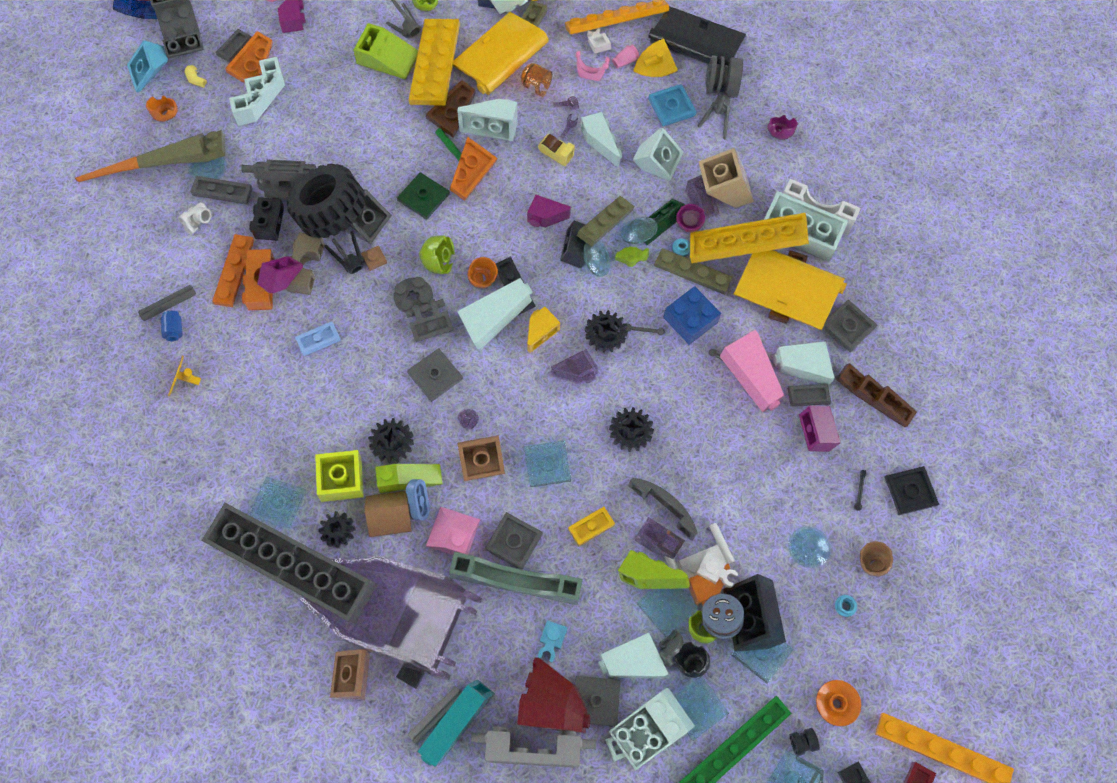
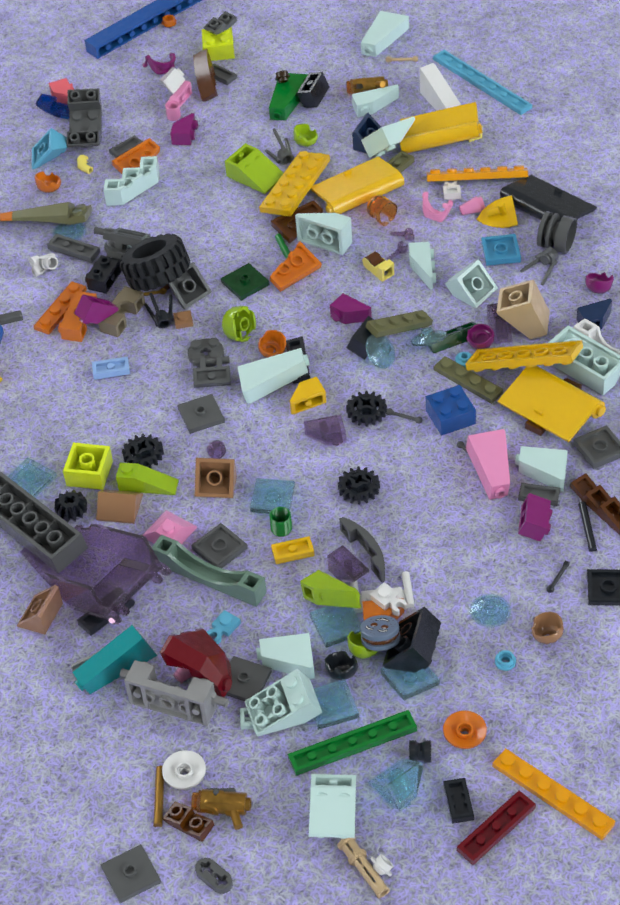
camera: 25 degrees right, 20 degrees down
(418, 499) = (147, 496): medium blue plate -> none
(569, 486) = (280, 521): none -> green piece
(632, 255) = (415, 357): lime piece -> none
(670, 647) = (320, 655): dark grey piece -> none
(790, 168) = (595, 312): none -> dark blue slope
(867, 423) = (587, 526): none -> black bar

